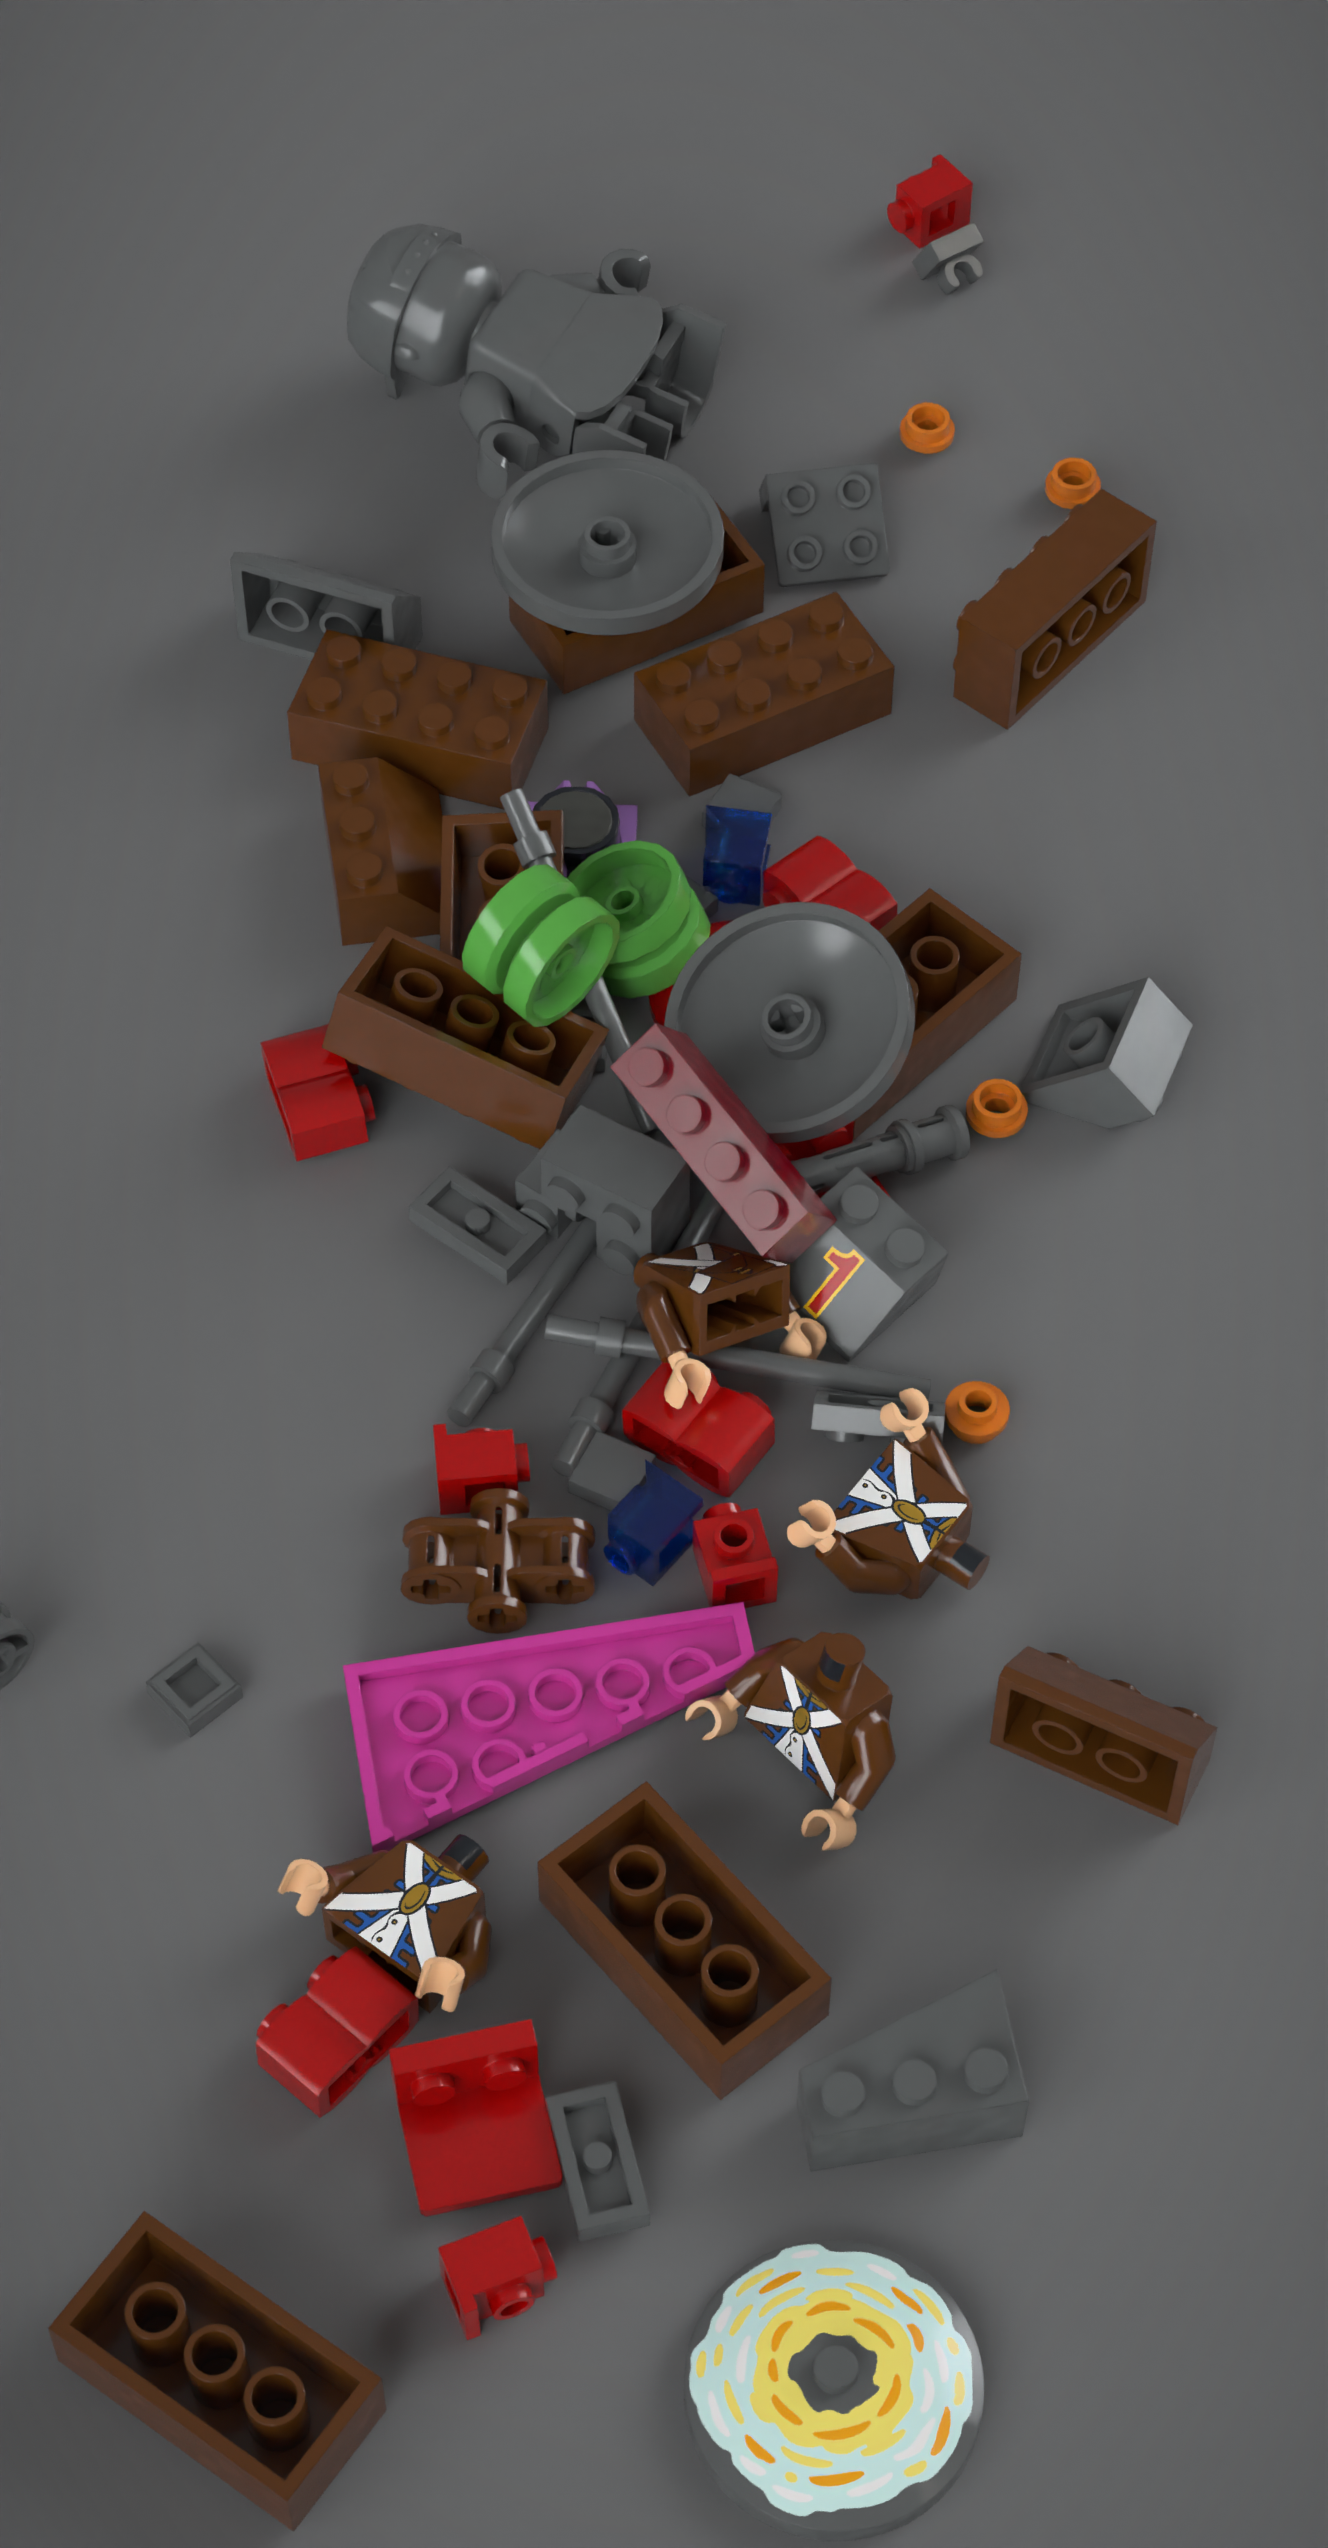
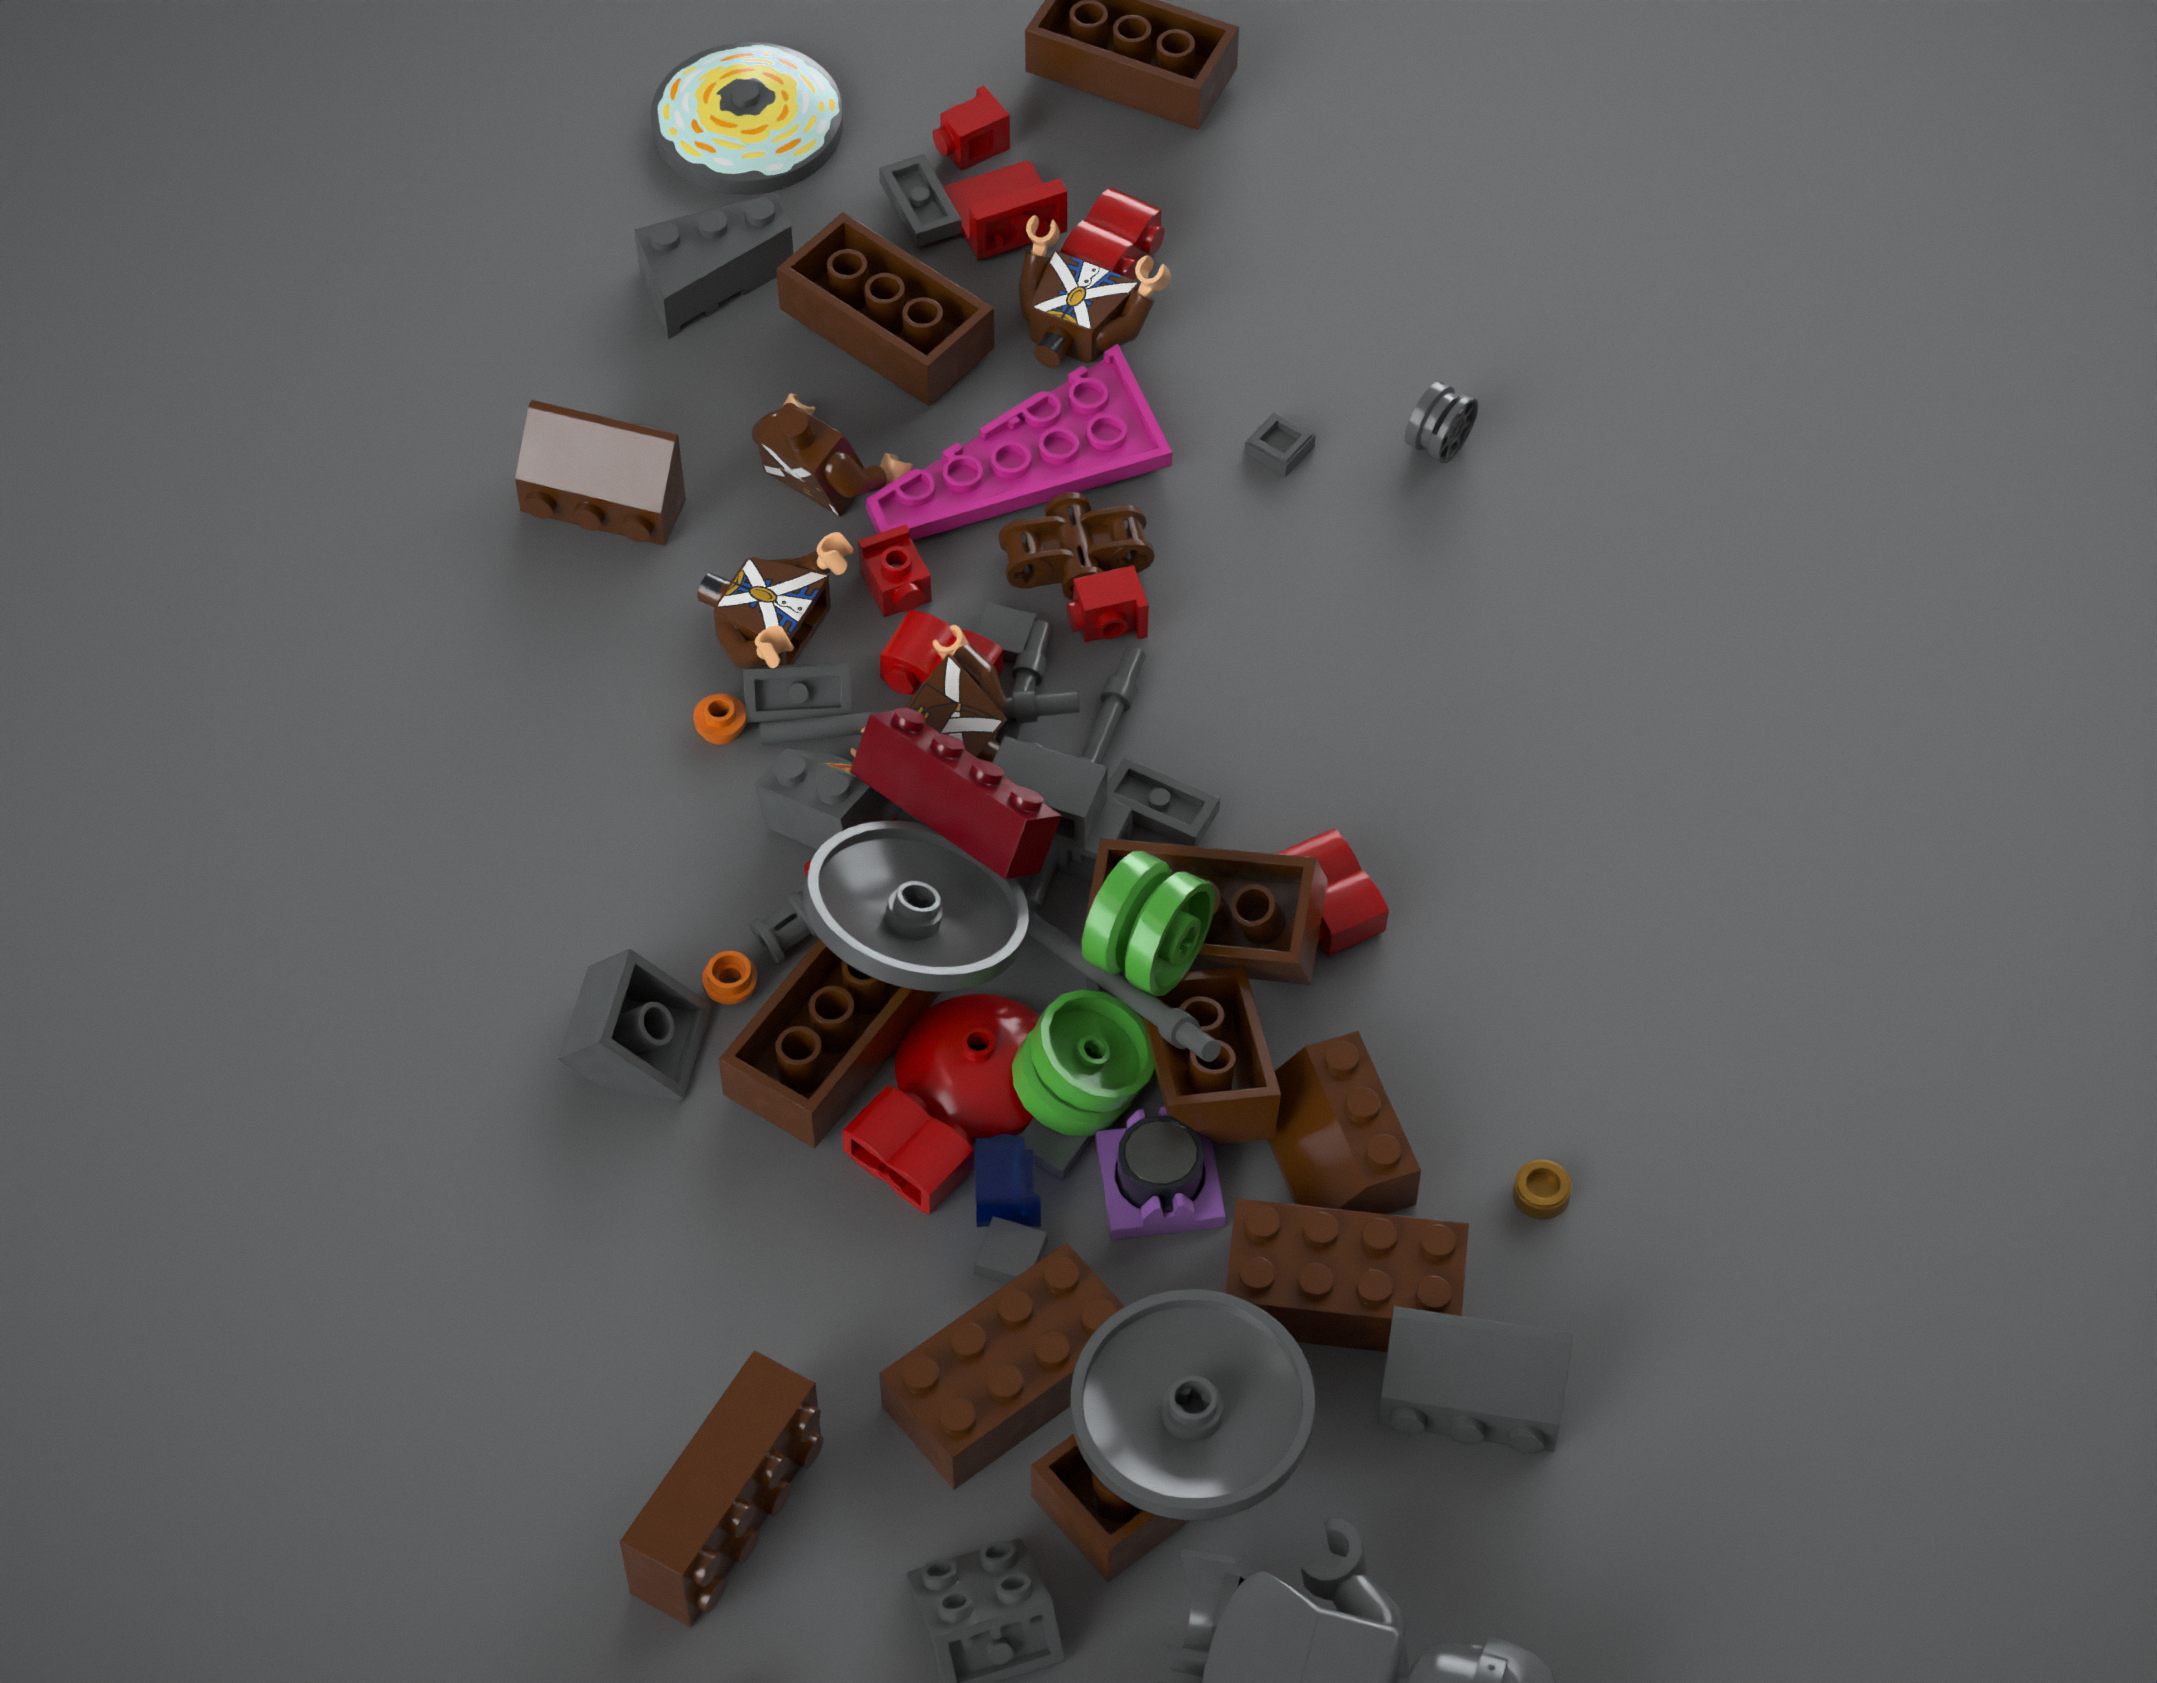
camera: 170 degrees right, 0 degrees up
(193, 795) = (1542, 1189): none -> pearl gold tile
(652, 1526) = (963, 584): clear blue window -> none

